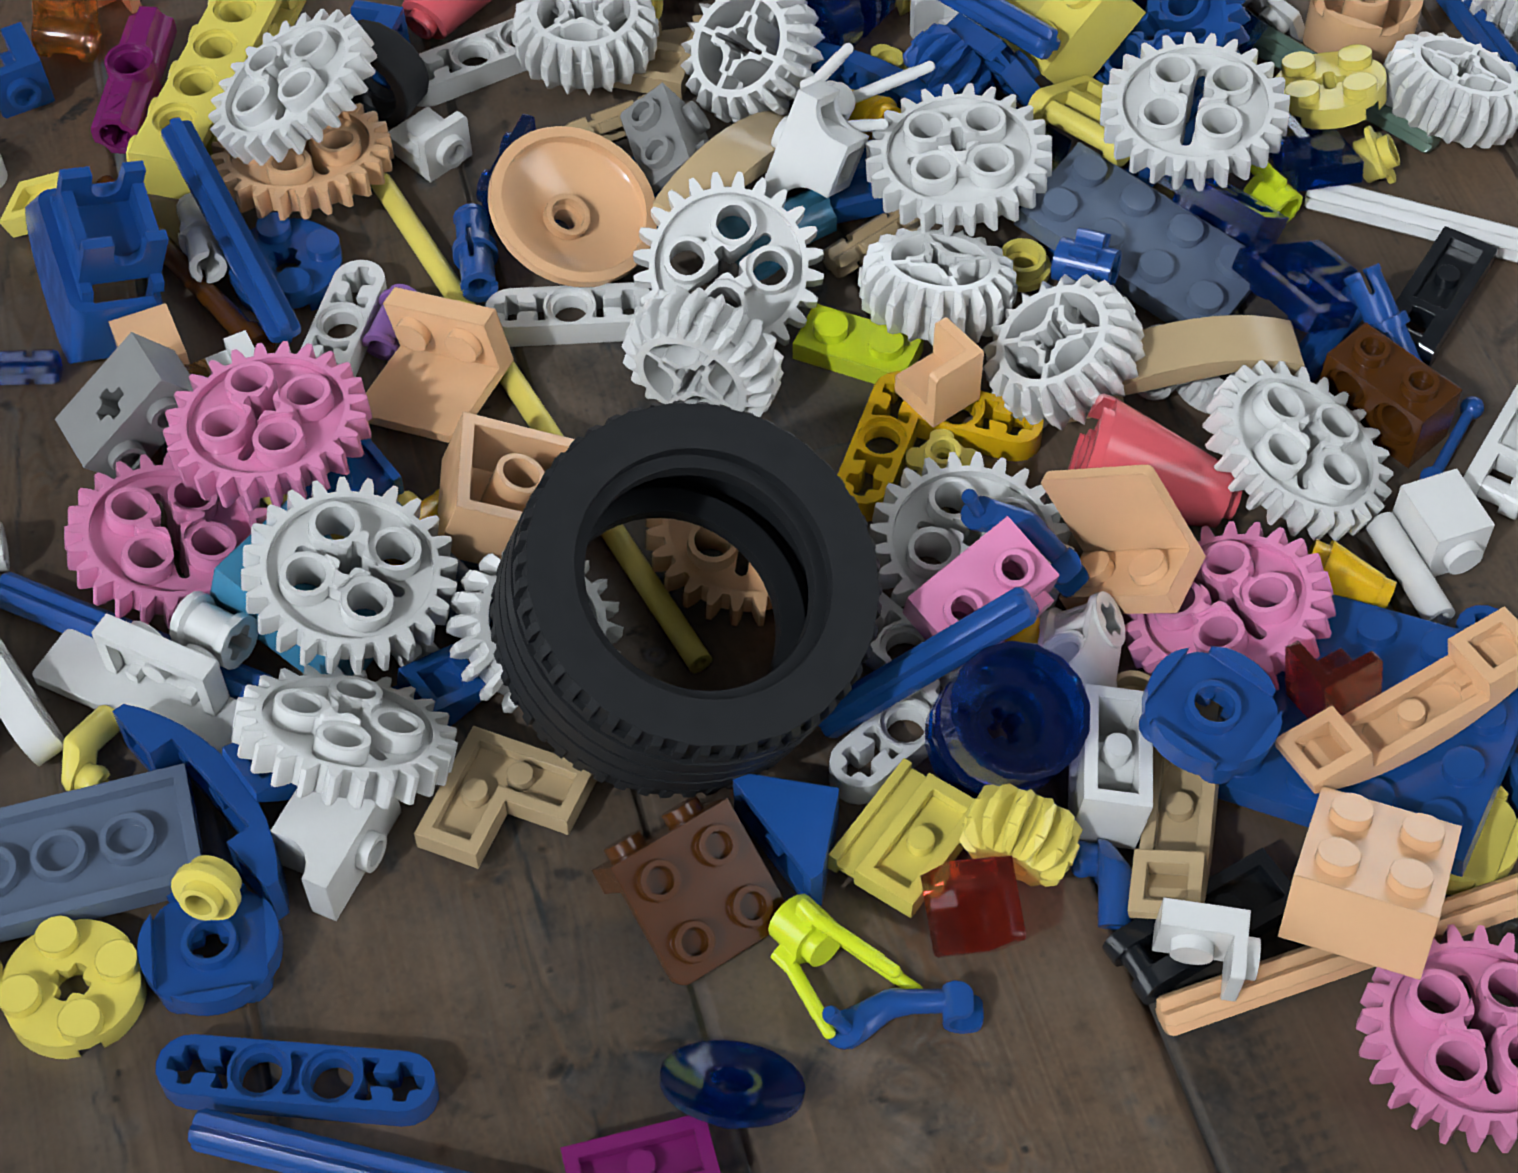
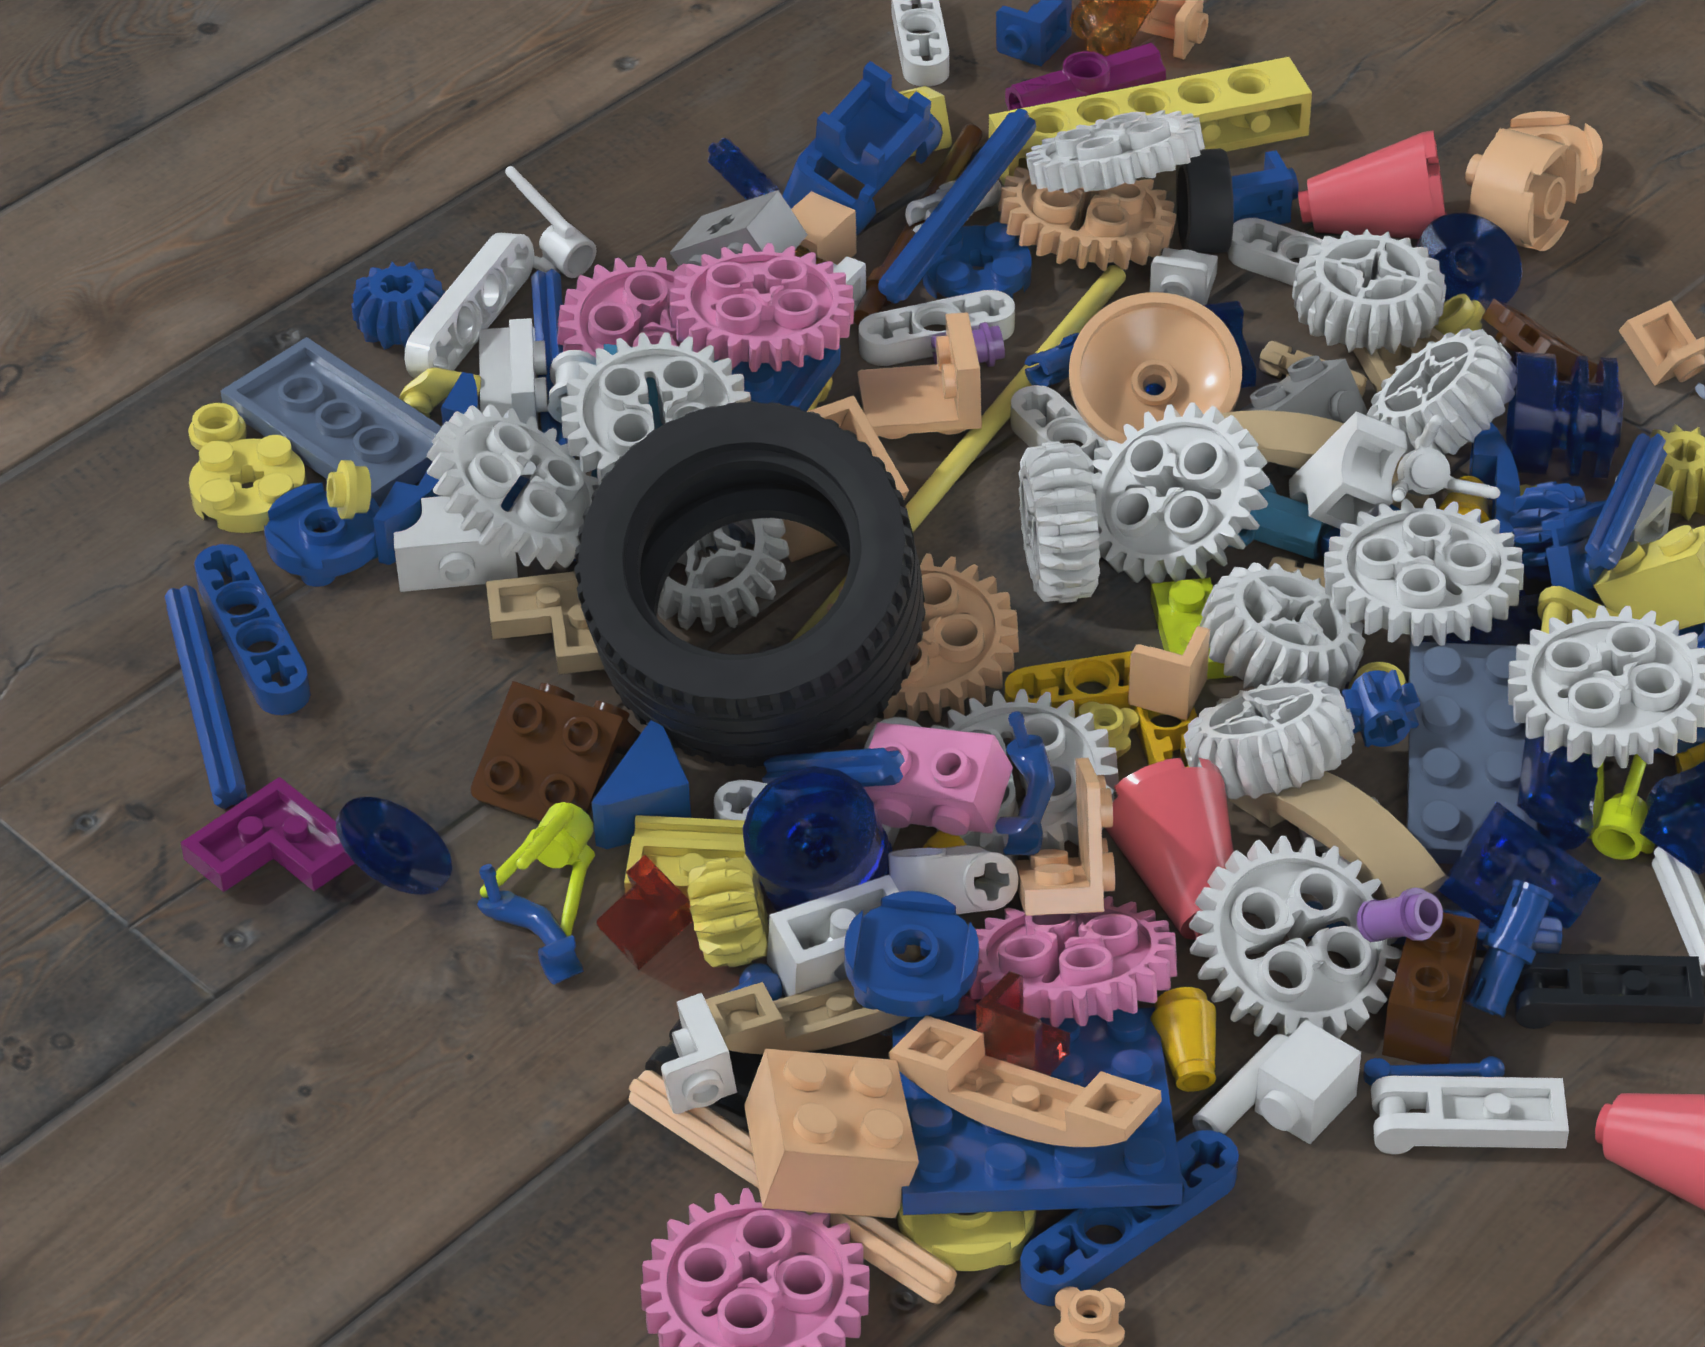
camera: 60 degrees right, 10 degrees down
(1350, 364) = (1409, 915): none -> medium lavender pin

